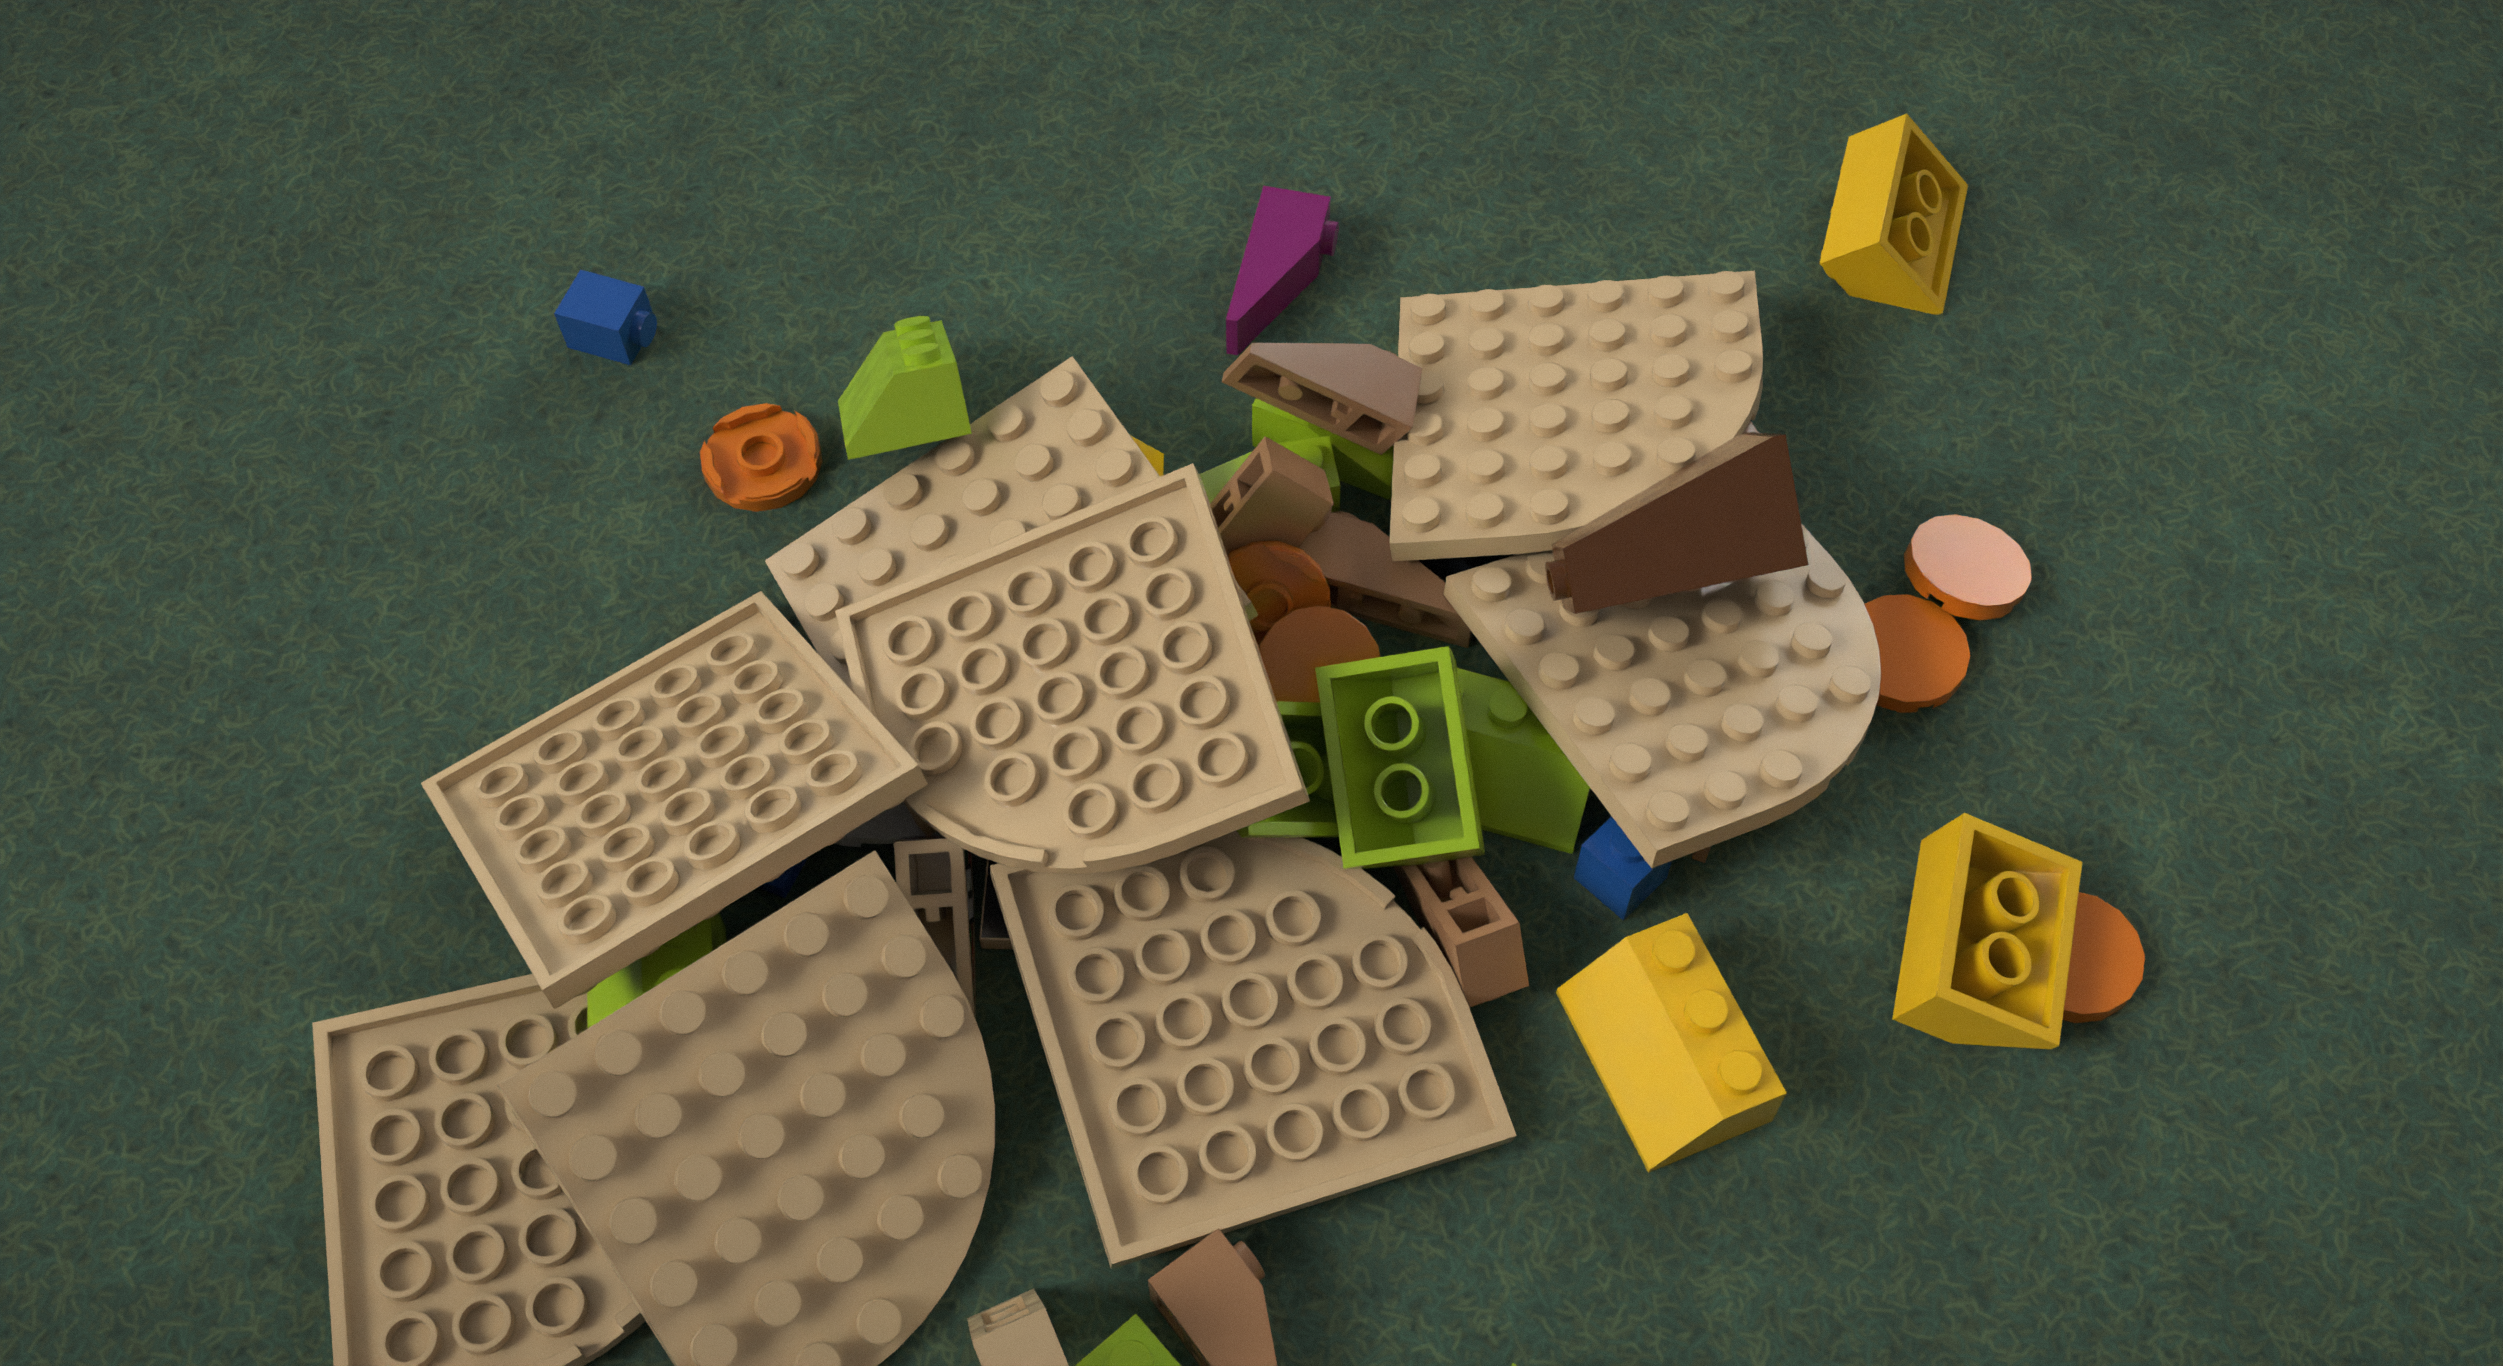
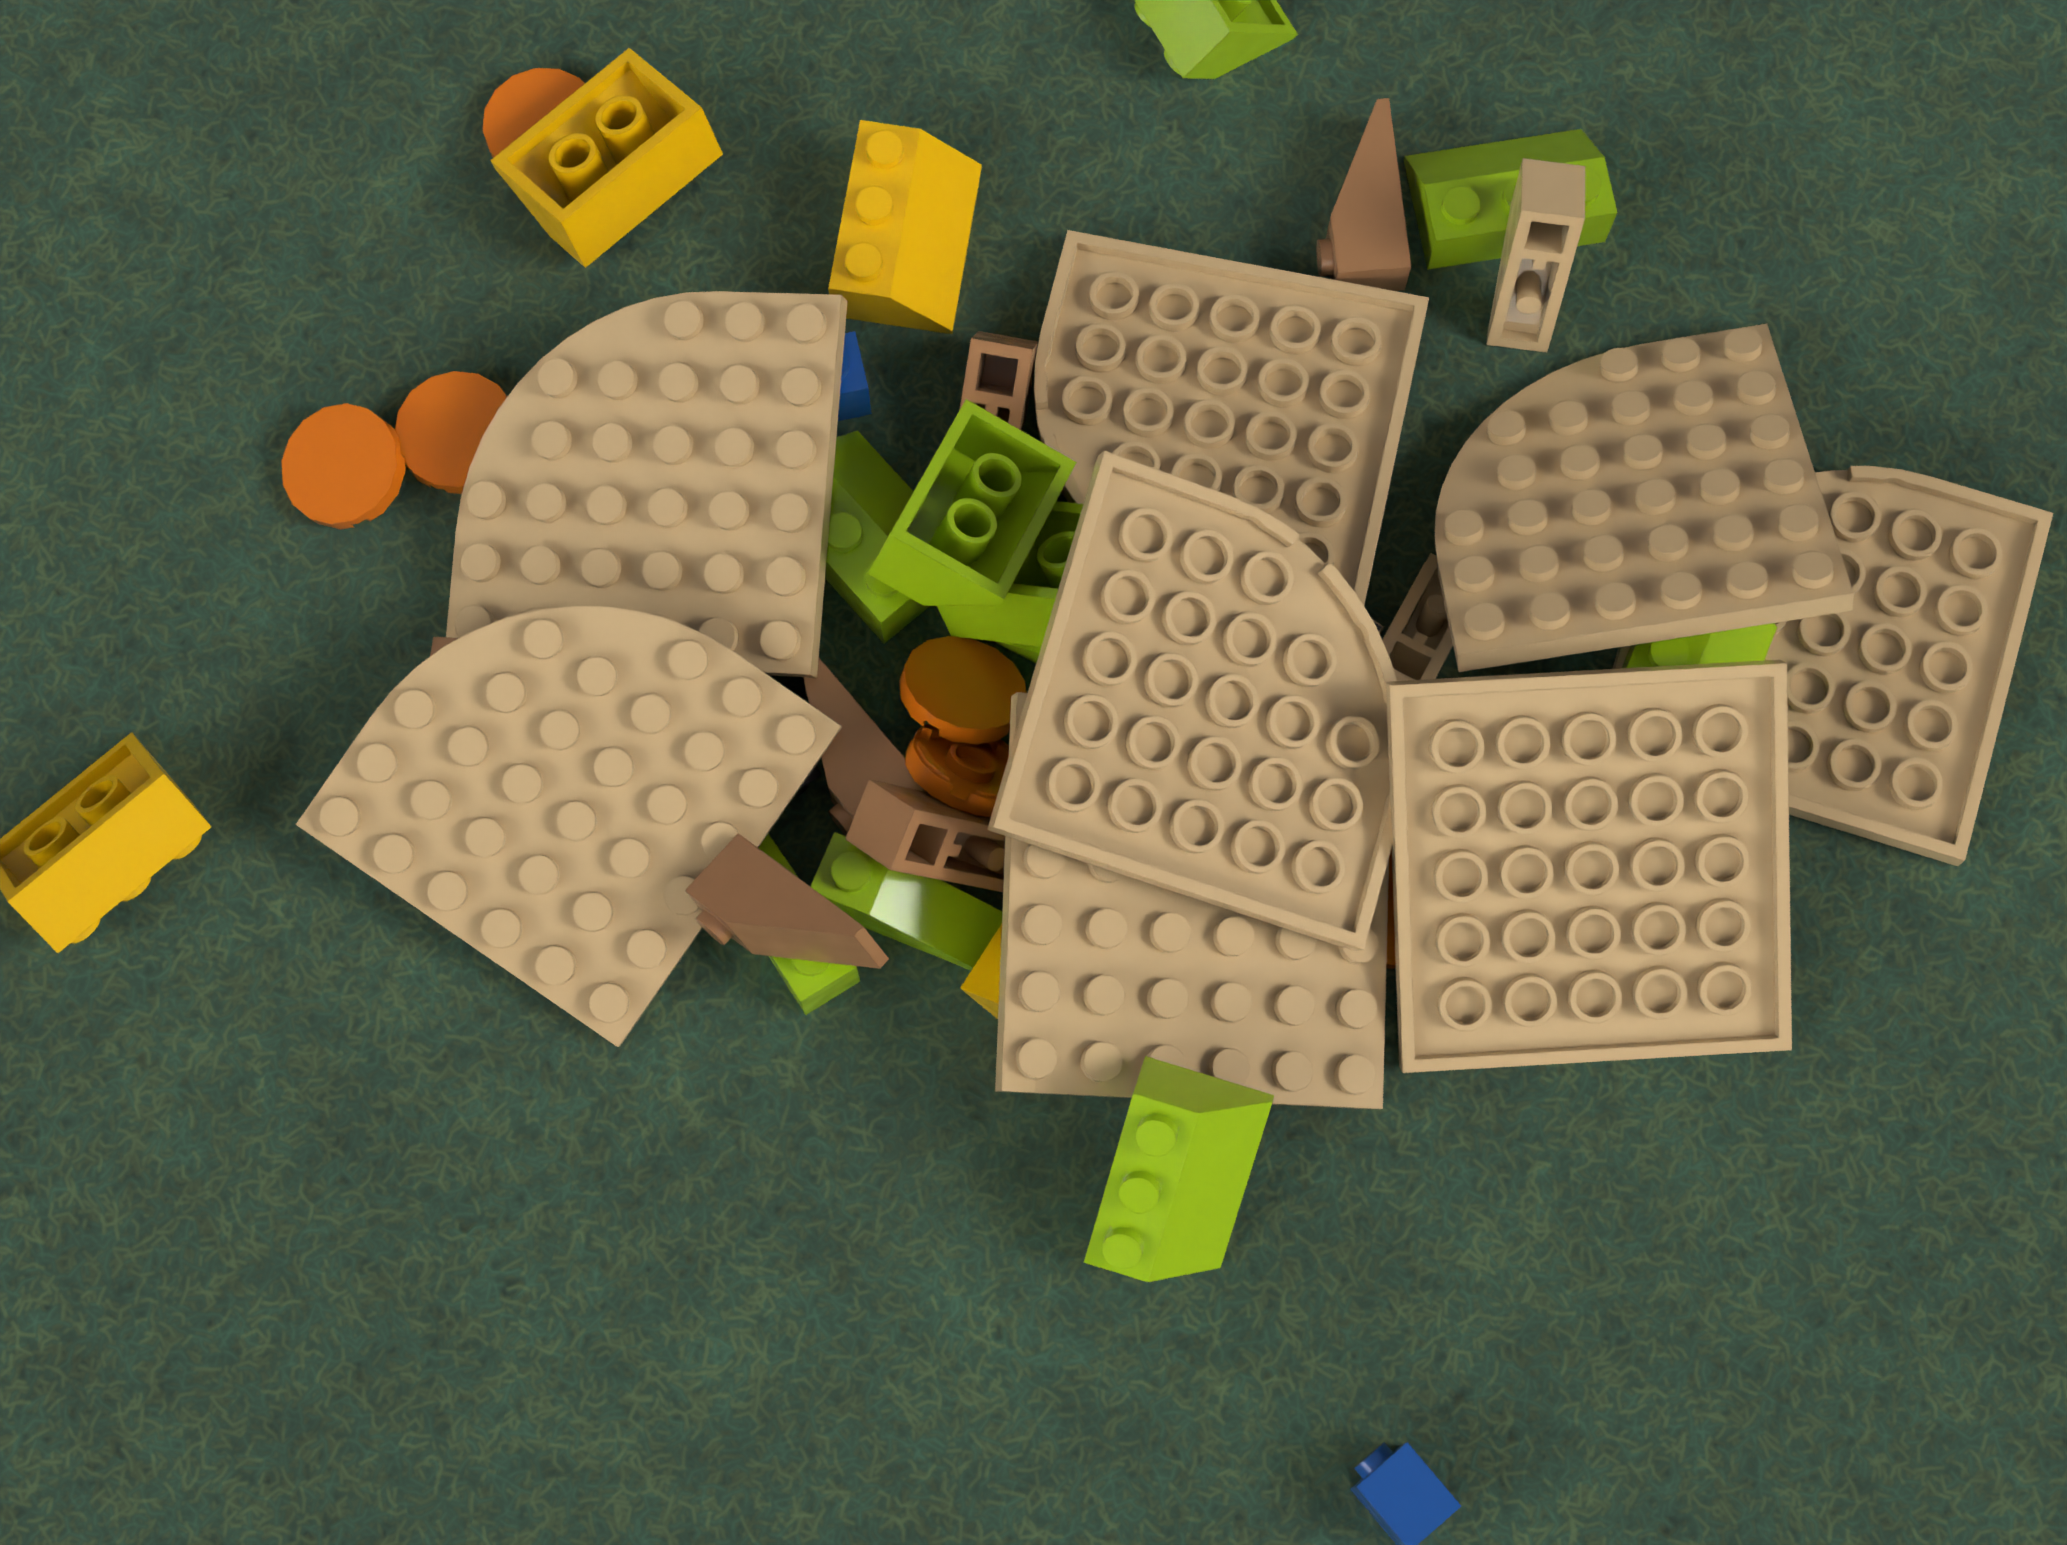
camera: 150 degrees left, 15 degrees up
(766, 473) = (1310, 1257): orange tile -> none
(1279, 260) = (700, 1161): magenta slope -> none
(1695, 529) = (602, 543): reddish brown slope -> none

